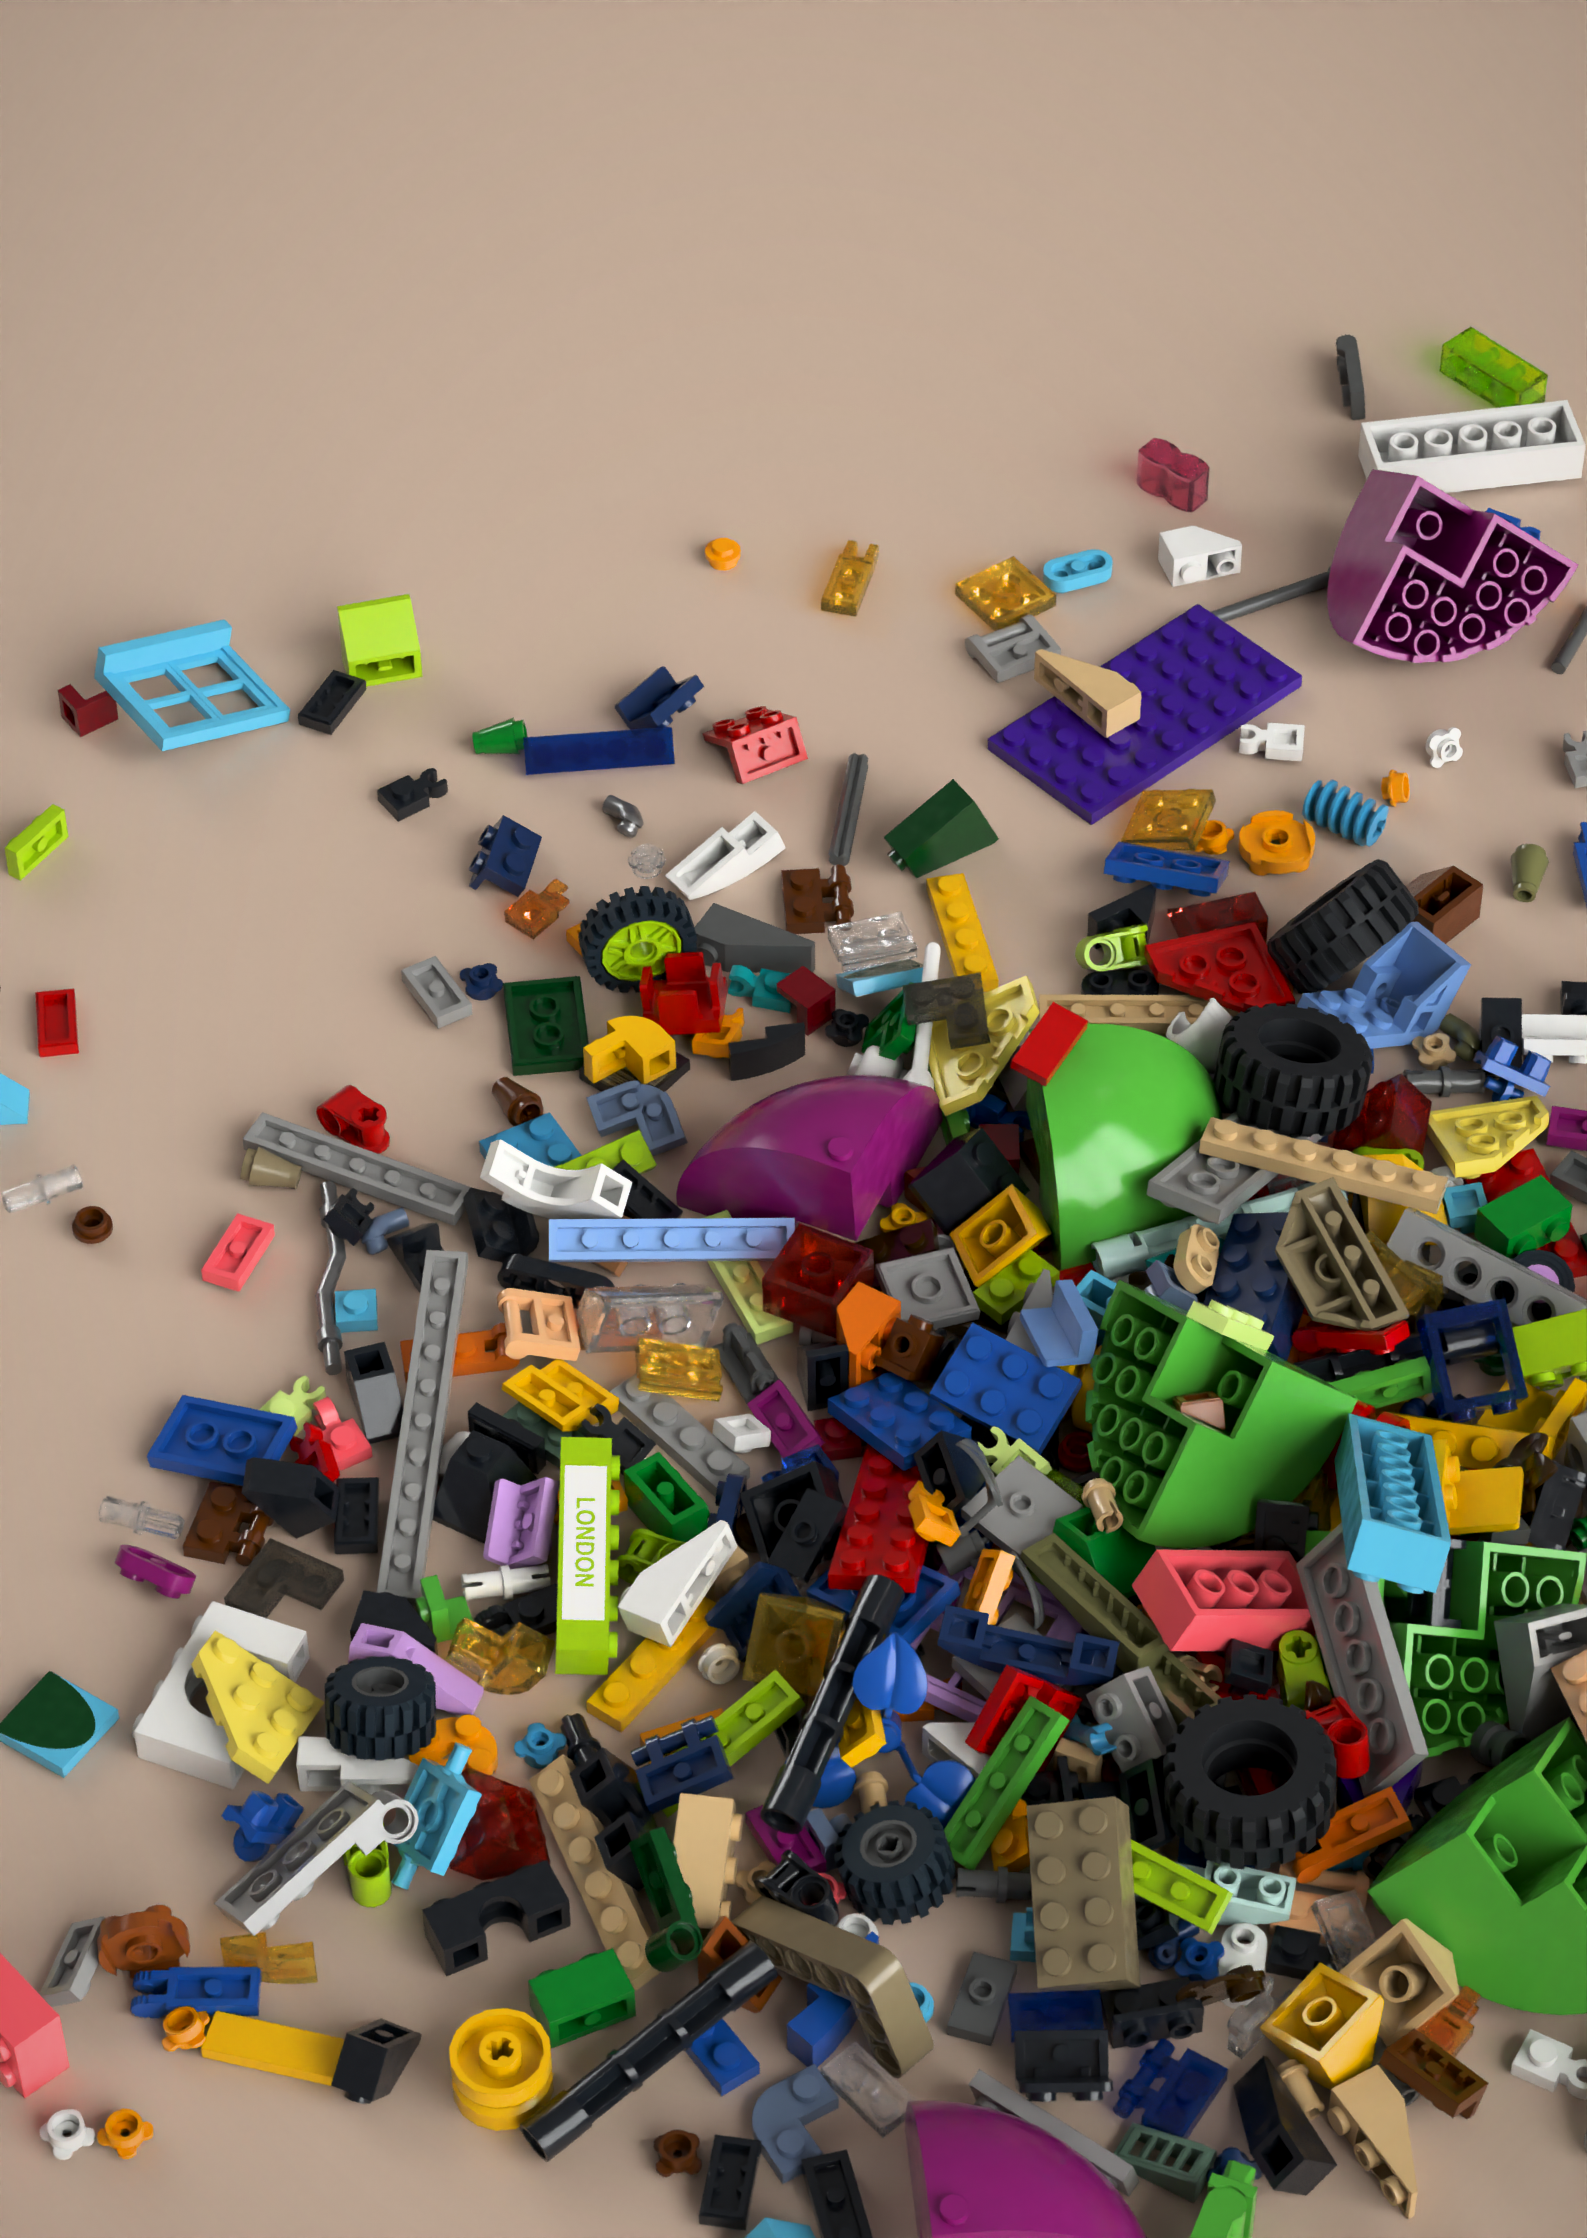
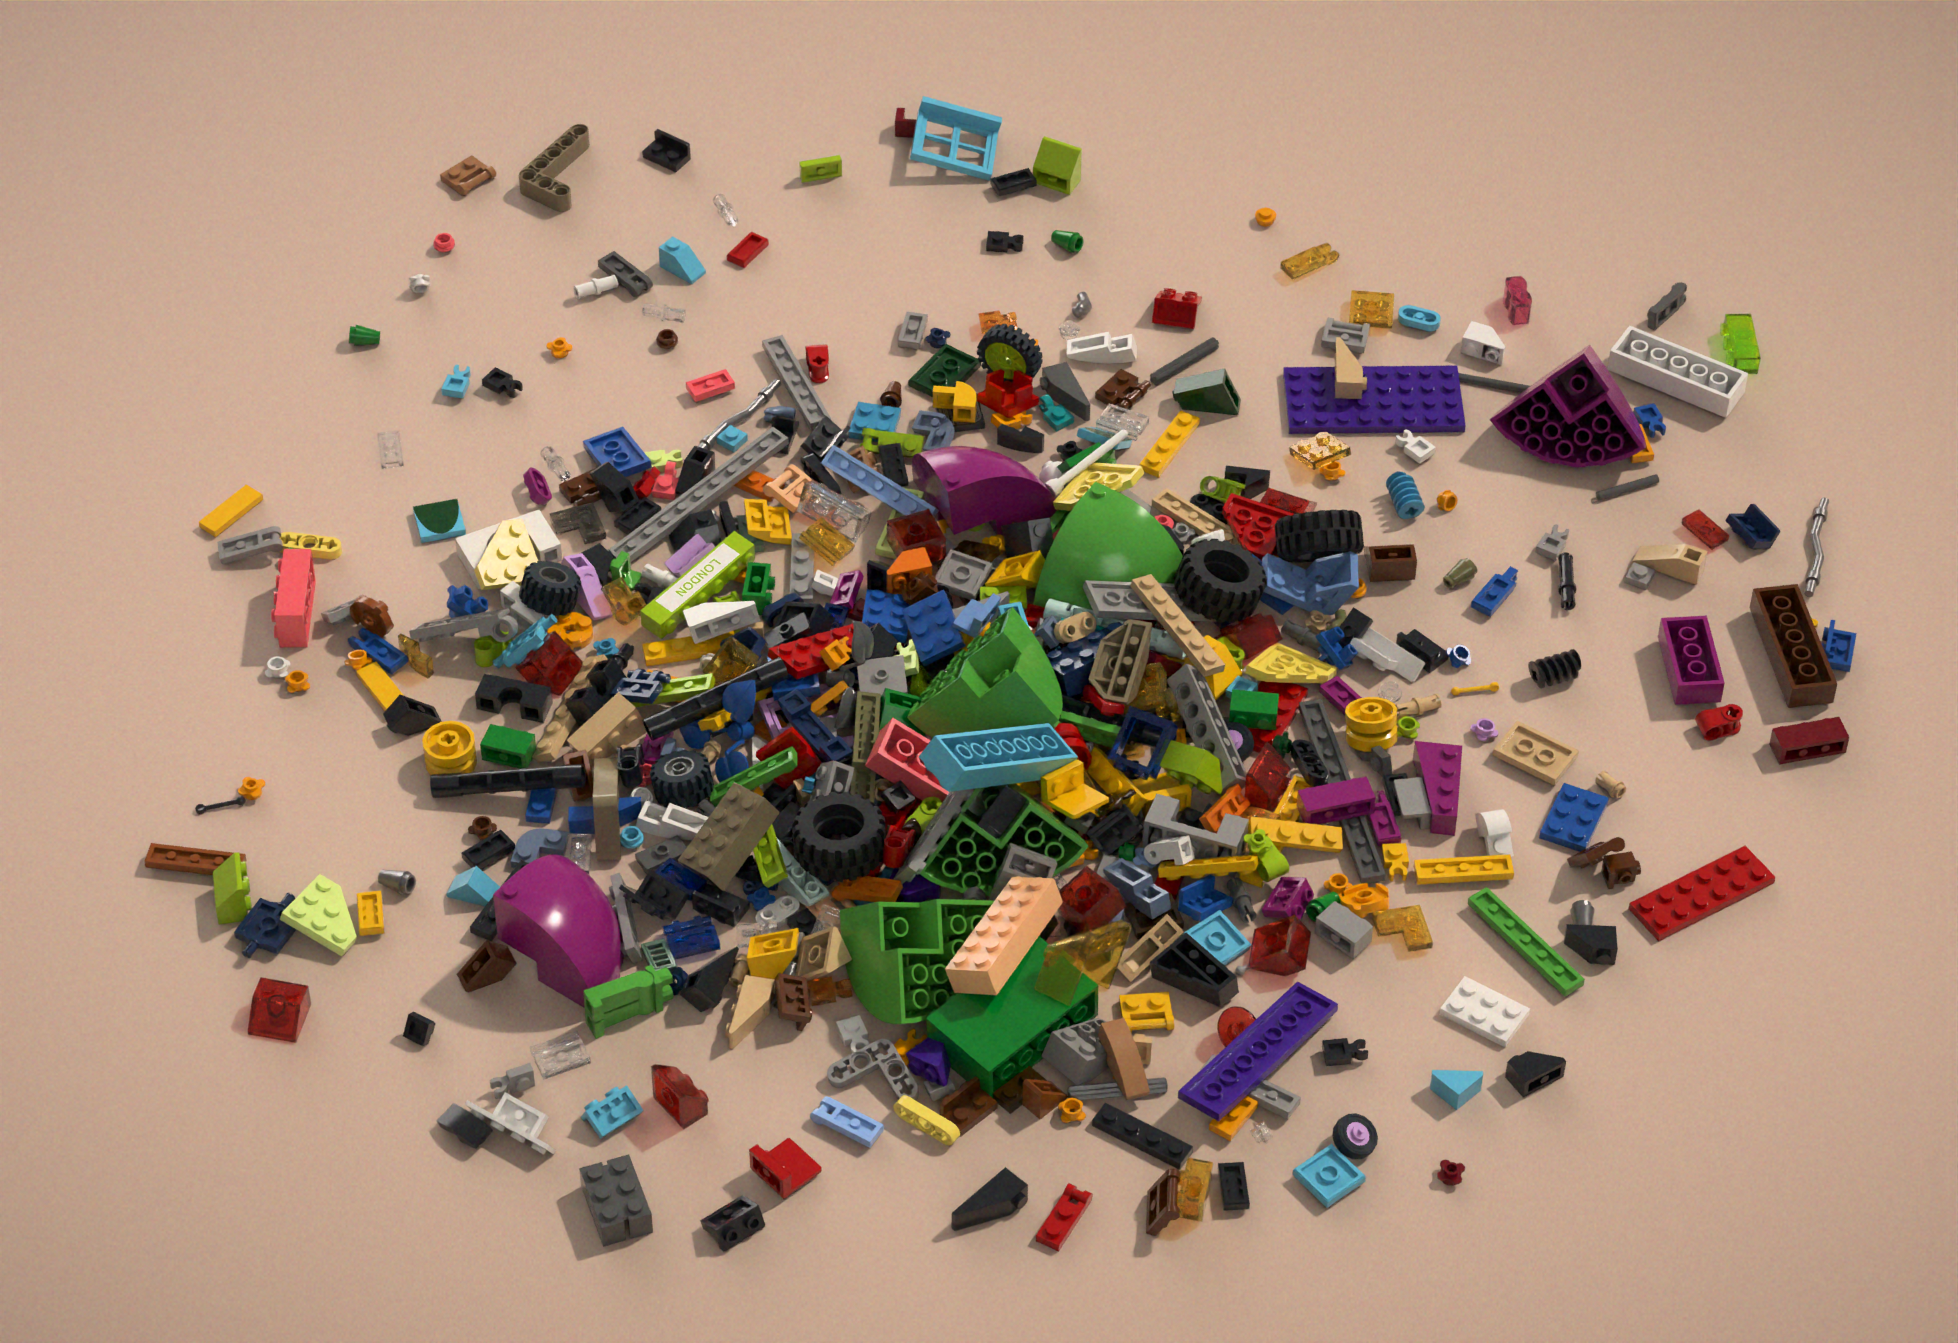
camera: 40 degrees right, 0 degrees up
(268, 1169) = (759, 359): dark tan cone -> none
(349, 1218) = (765, 397): black plate -> none
(505, 856) = (1009, 292): dark blue bracket -> none
(554, 1191) = (848, 433): white arch -> none
(599, 750) = (1102, 270): clear blue plate -> none
(626, 1438) = (770, 553): black plate -> none
(657, 699) = (1152, 261): dark blue bracket -> none
(669, 1900) = (572, 728): dark green plate -> none
(744, 1362) = (861, 555): dark grey hinge -> none
(812, 997) = (1062, 427): dark red panel -> none
(953, 1933) = (669, 821): none -> white slope
(954, 999) = (1100, 461): clear smoke plate -> none
(1049, 1044) = (1091, 491): red tile -> none
(1100, 1498) = (913, 691): tan pin -> none
(1166, 868) = (1289, 469): blue plate -> none
(1202, 1406) = (983, 678): slope -> none
(1231, 1323) = (1036, 654): yellowish green plate -> none
(1236, 1985) = (754, 912): dark brown plate -> none
(1292, 853) = (1359, 500): light orange plate -> none
(1444, 746) = (1492, 490): white plate -> none

